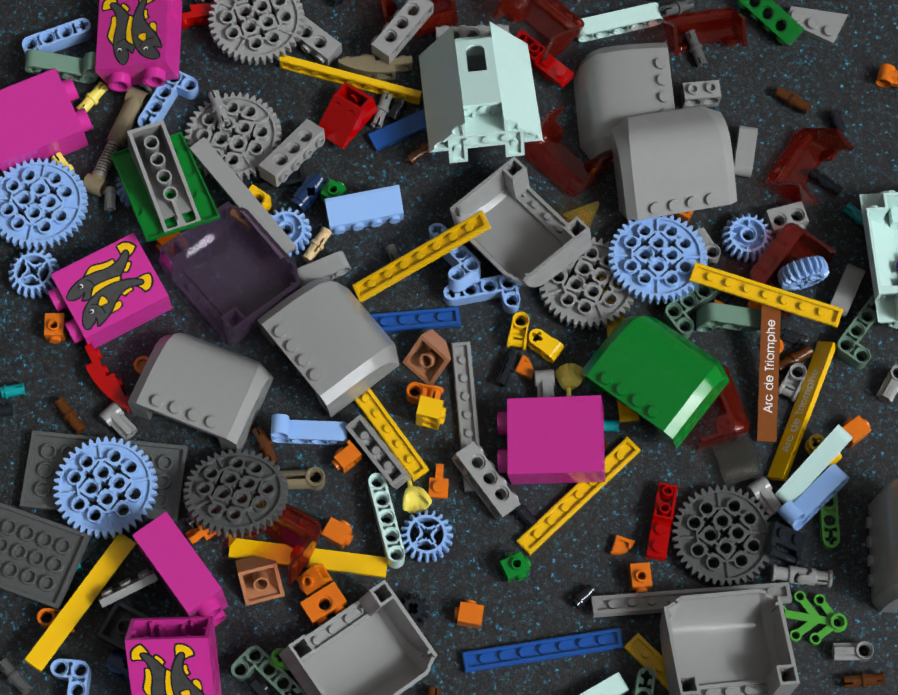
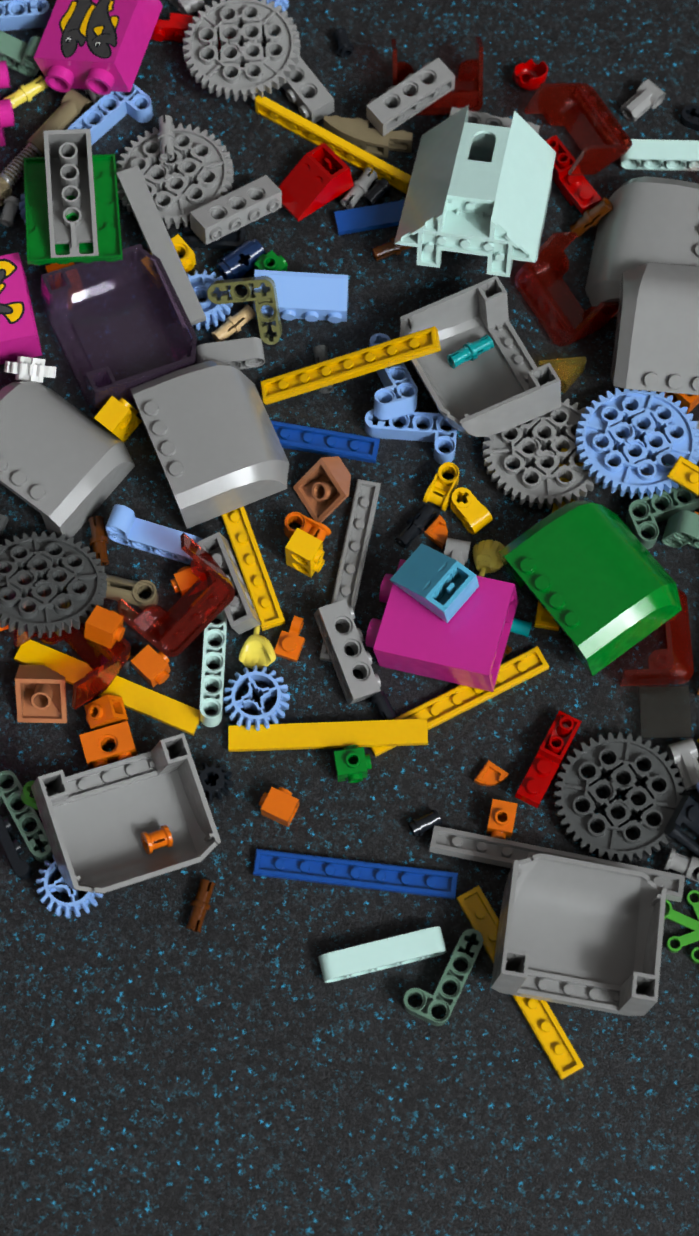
camera: 20 degrees right, 0 degrees up
(169, 323) = (30, 369): none -> white gear
(252, 344) = (119, 418): none -> yellow brick
(297, 513) = (104, 627): none -> orange brick
(333, 219) = (259, 297): none -> olive beam
(357, 483) = (192, 613): none -> clear red windscreen
(385, 667) = (156, 839): none -> orange bush
(490, 549) = (328, 735): none -> yellow tile
(508, 219) = (470, 351): none -> teal pin
(541, 409) = (436, 581): none -> medium azure slope
(569, 89) = (591, 217): none -> reddish brown pin

